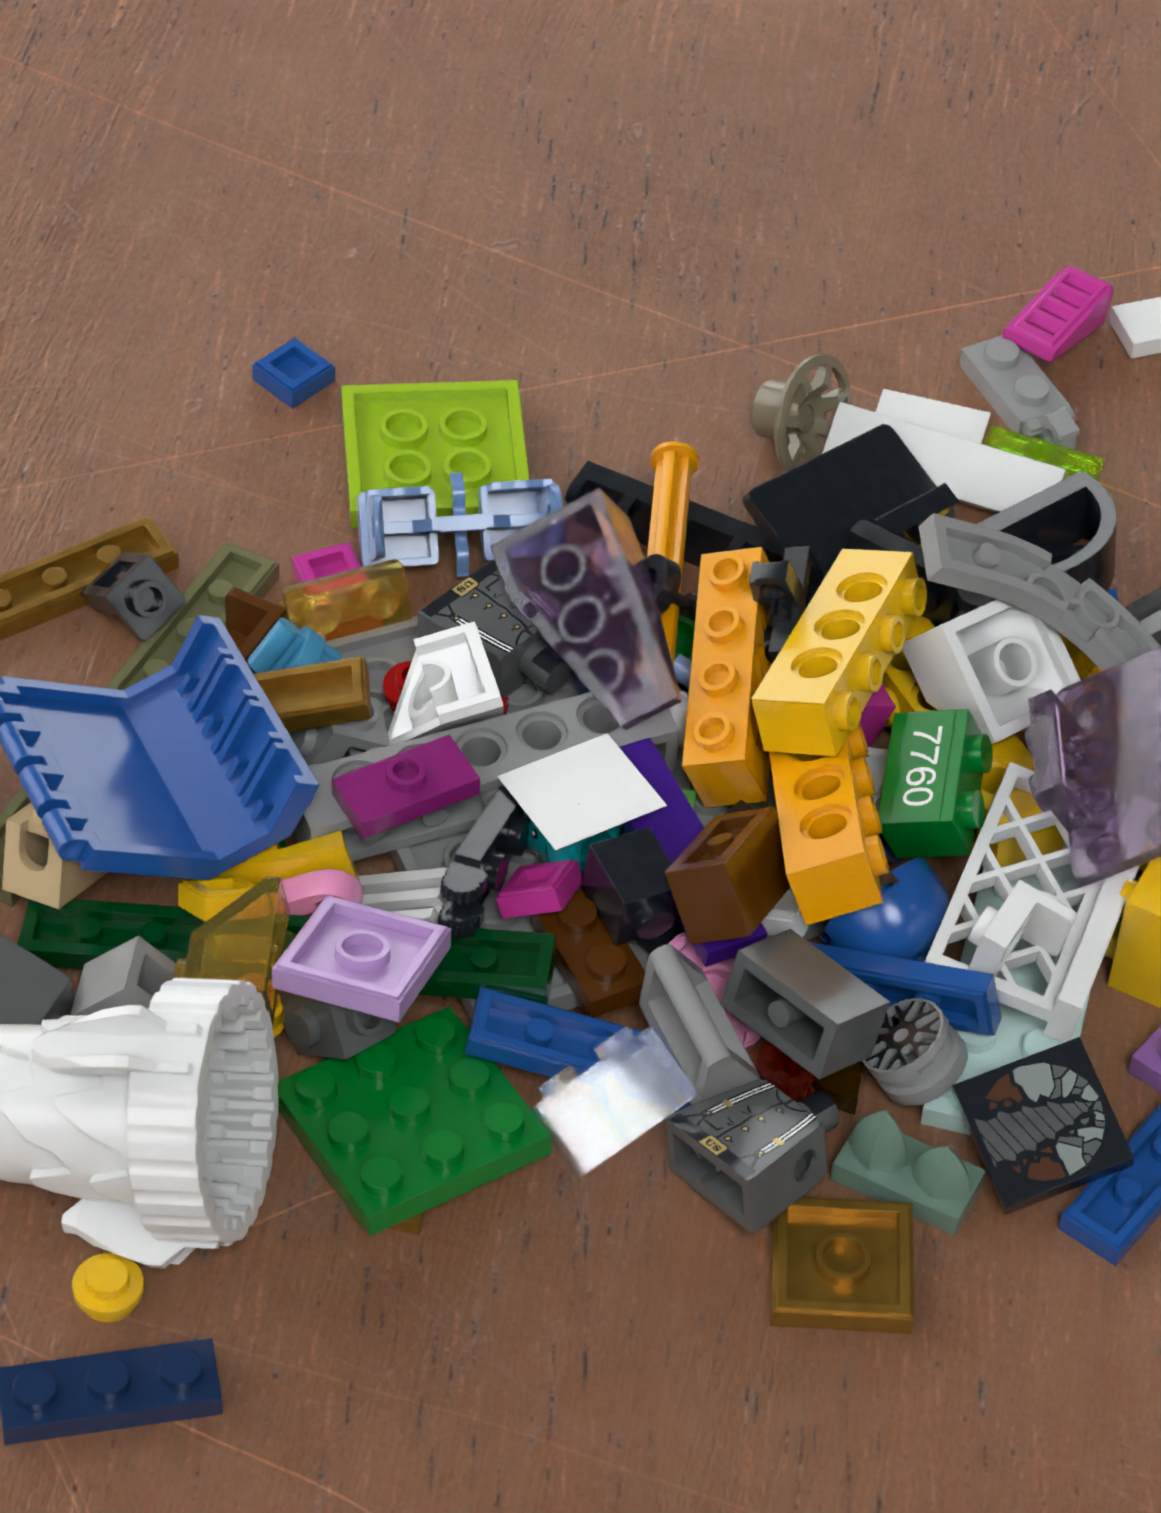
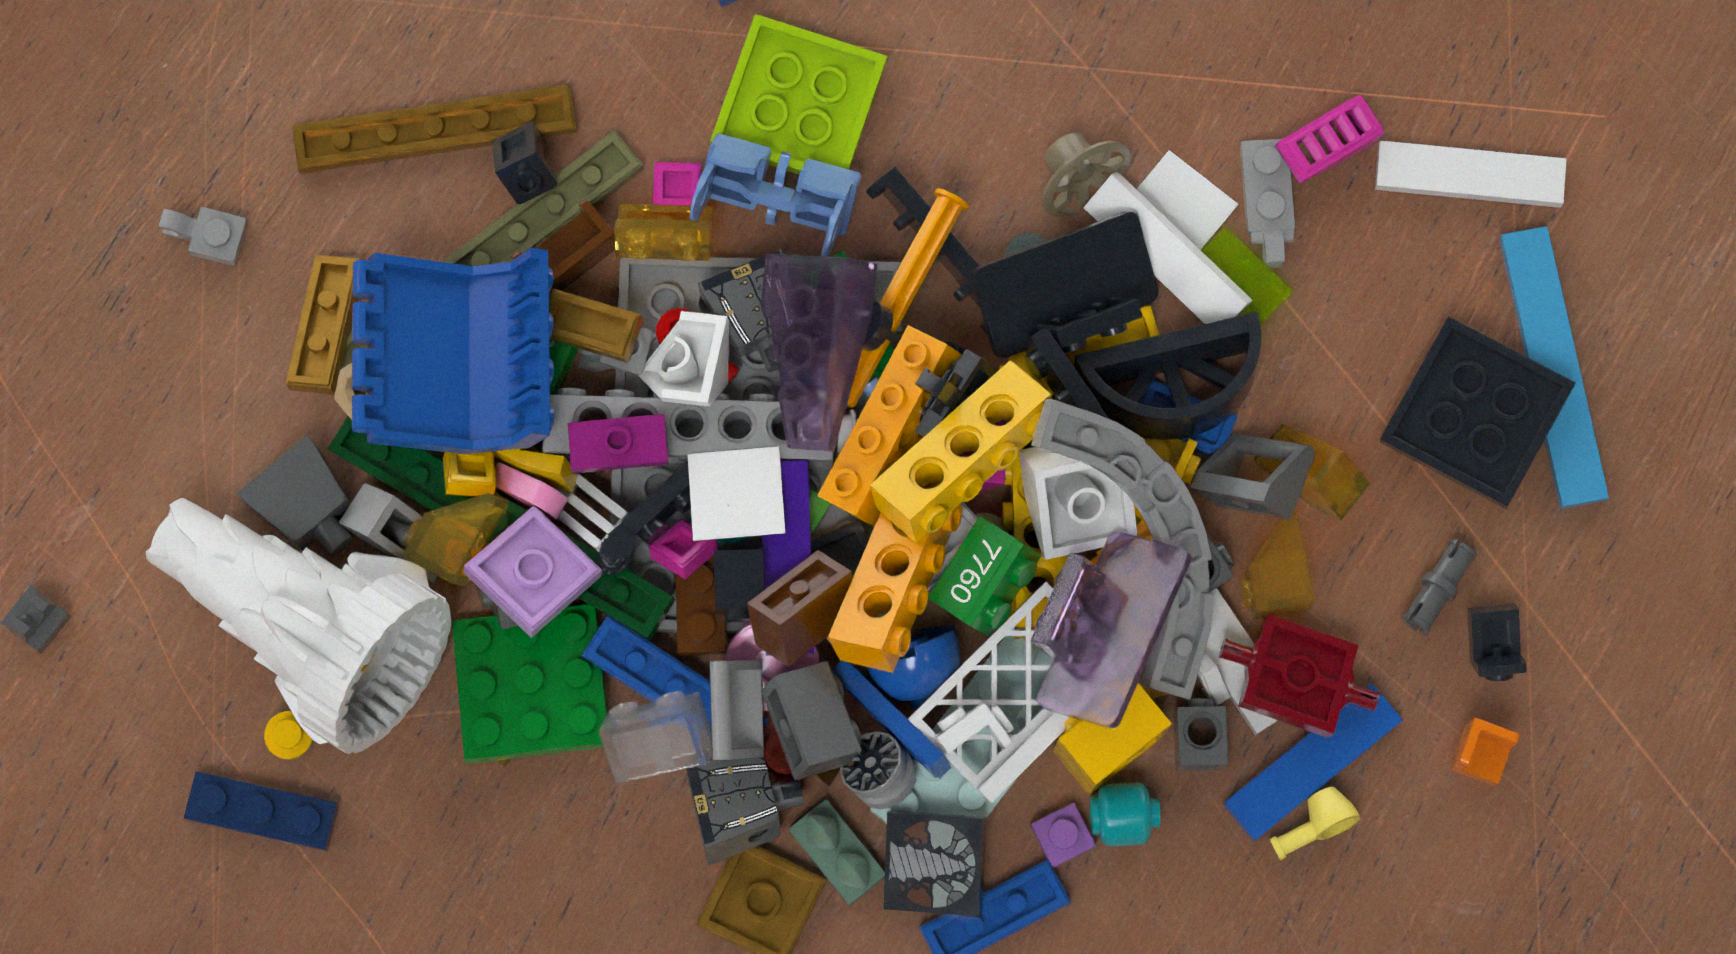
camera: 25 degrees right, 30 degrees up
(289, 647) = (604, 281): dark azure piece -> none

